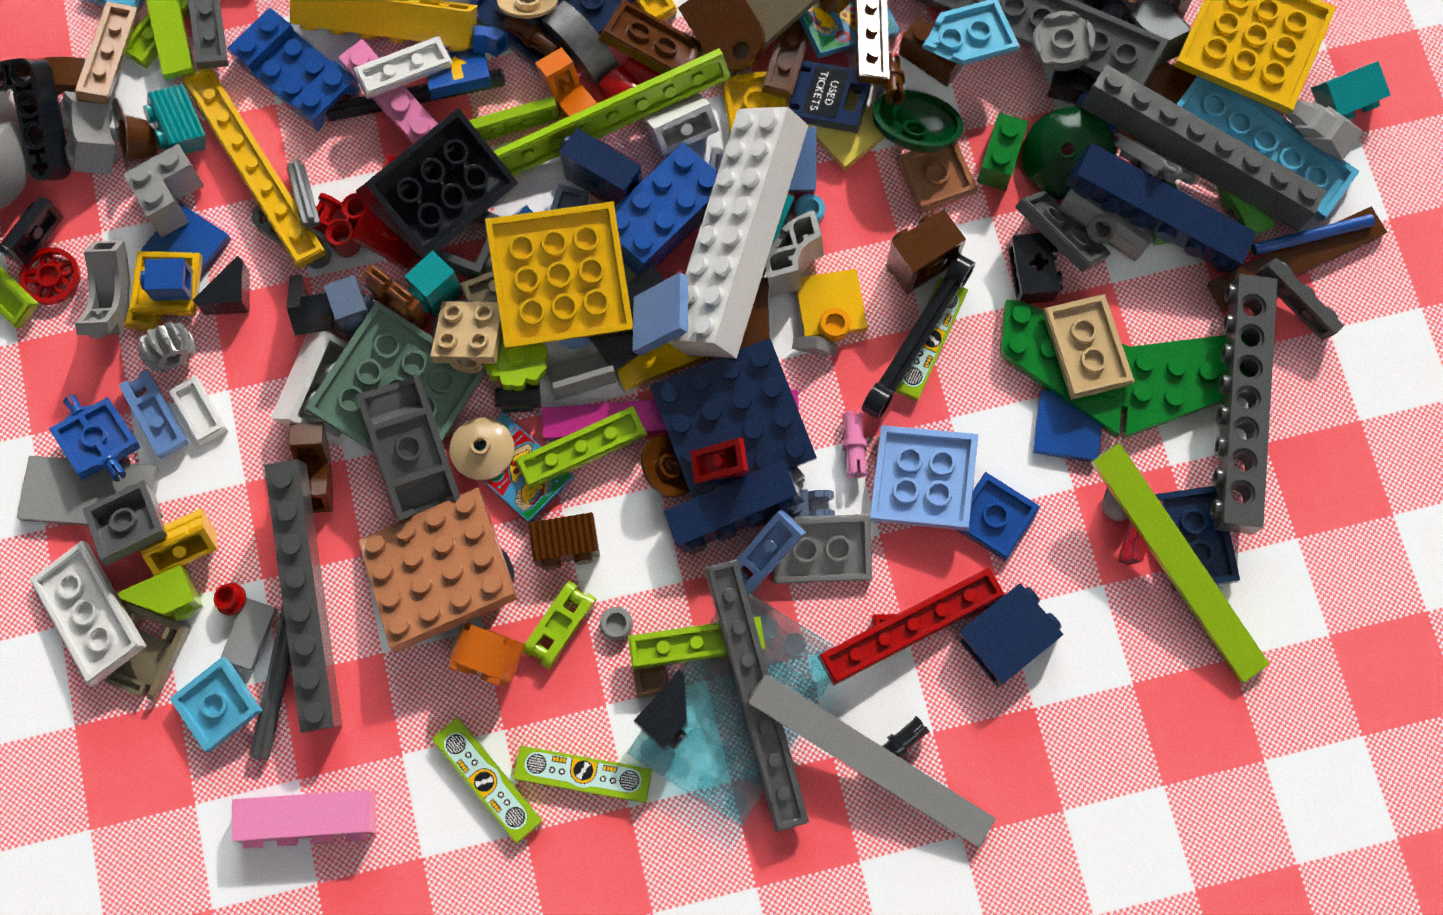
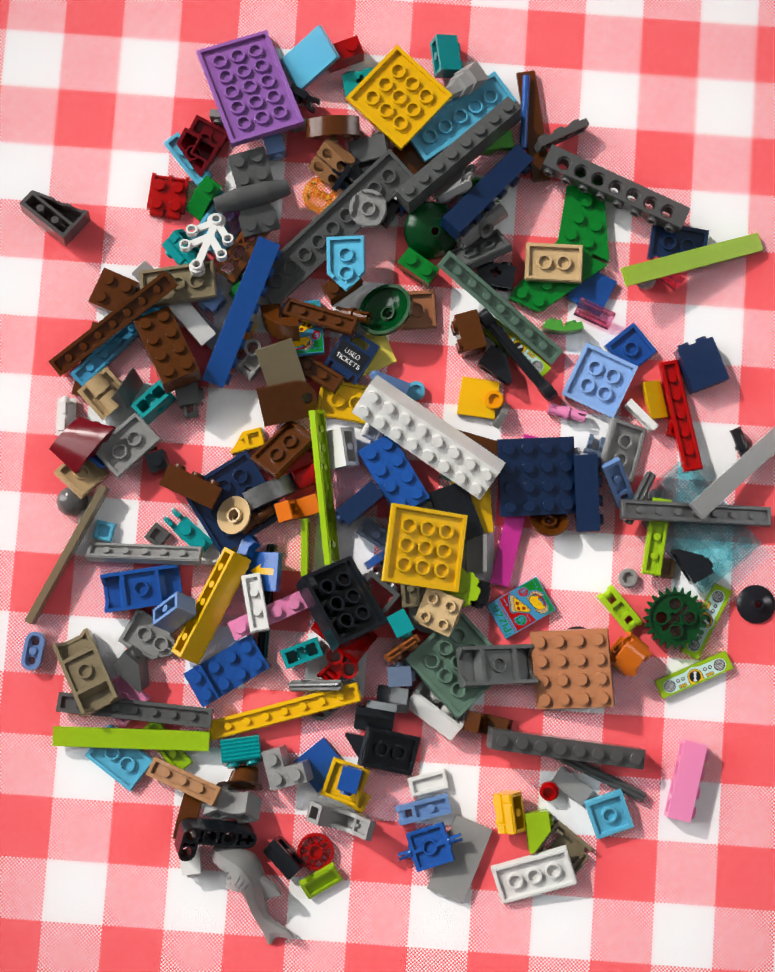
camera: 75 degrees left, 10 degrees up
(125, 522) = (492, 839): dark grey plate -> none
(166, 347) = (387, 790): light grey gear -> none
(230, 330) = (388, 750): none -> black tile
(272, 299) = (374, 718): none -> black panel
(345, 157) = (302, 652): none -> teal brick
(492, 459) = (495, 619): tan dish -> none
(555, 742) = (688, 630): none -> dark green gear
(564, 540) = (574, 592): reddish brown brick -> none
(581, 447) = (522, 567): lime tile -> none
(651, 865) = (746, 604): none -> black dish
(660, 314) = (468, 497): medium blue tile -> none
(719, 461) = (564, 490): red slope -> none
(767, 598) = (643, 490): none -> dark grey axle
(792, 252) = (442, 407): light grey brick -> none
(889, 561) = (640, 415): none -> white tile
(893, 312) = (496, 364): none -> black slope
(924, 578) = (654, 399): none -> yellow slope
(982, 282) = (500, 307): none -> sand green plate
(987, 386) = (556, 327): none -> bright green slope
(1031, 438) = (594, 313): none -> clear pink tile

